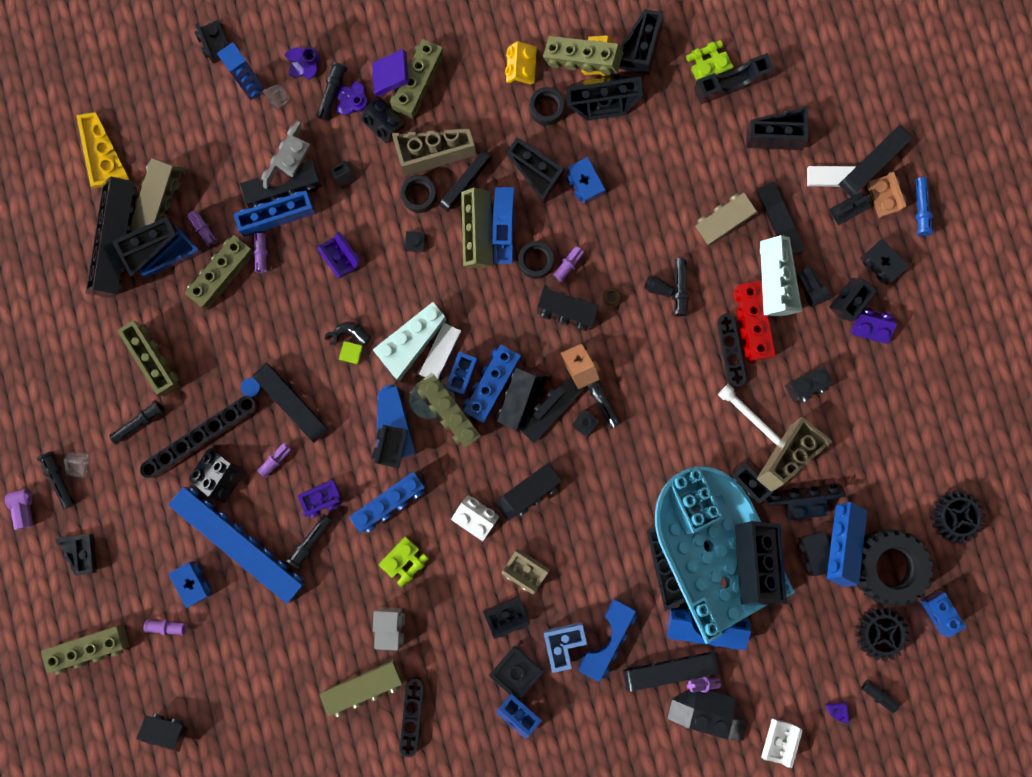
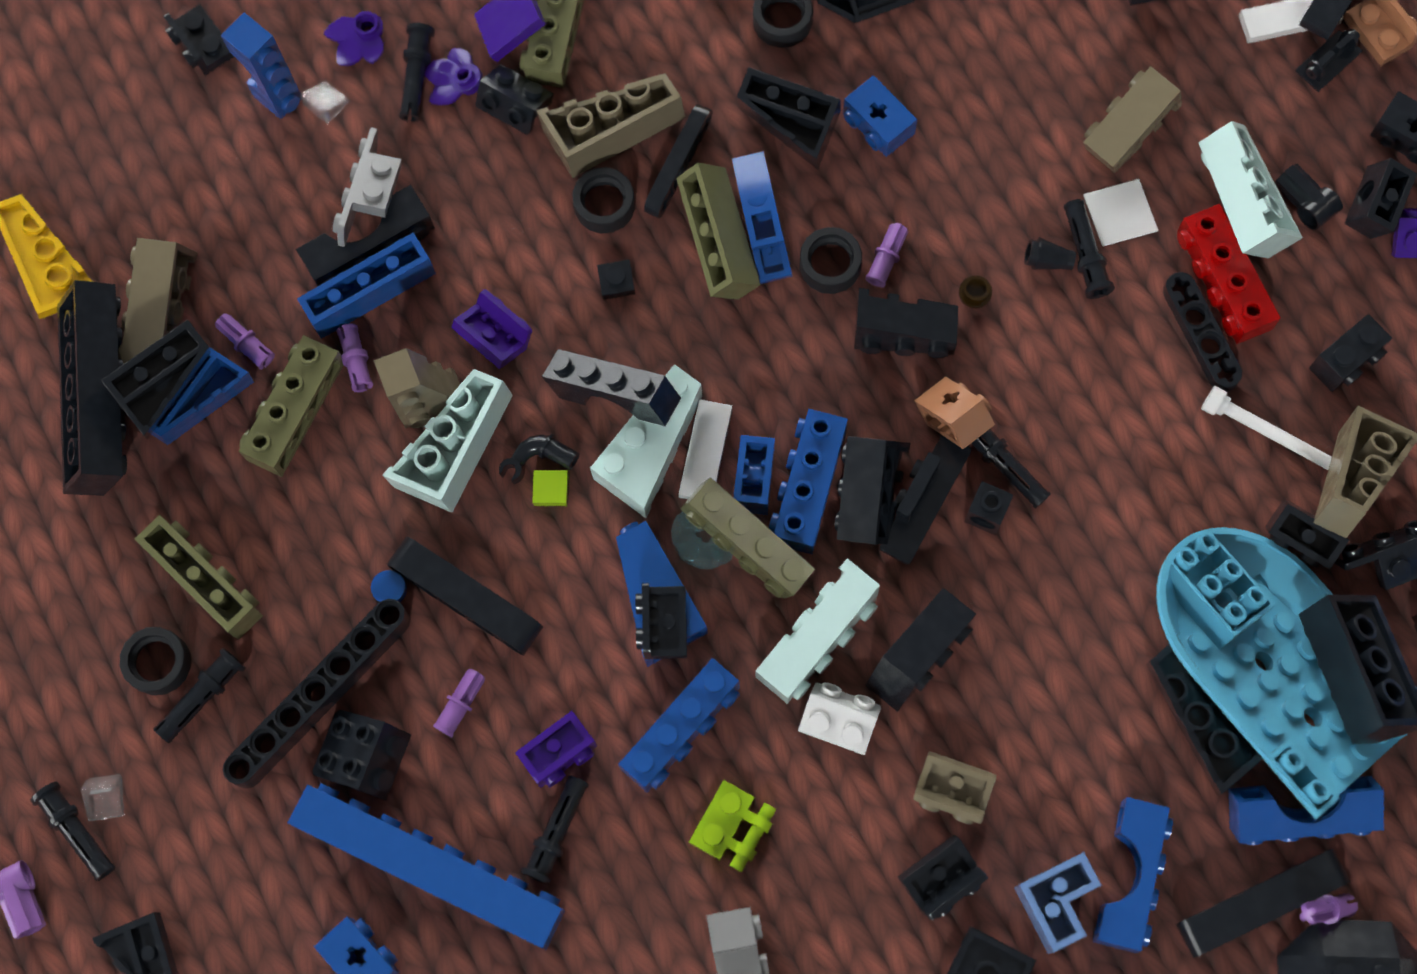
camera: 15 degrees left, 10 degrees down
(103, 395) = (132, 649): none -> black tyre
(288, 282) = (415, 386): none -> dark tan wedge
(302, 316) = (452, 443): none -> light aqua wedge
(343, 175) = (467, 200): black slope -> none
(403, 312) = (640, 392): none -> black arch
(474, 470) = (819, 633): none -> light aqua wedge
(706, 269) = (1120, 212): none -> white sticker
(779, 216) = (1215, 97): black tile -> none

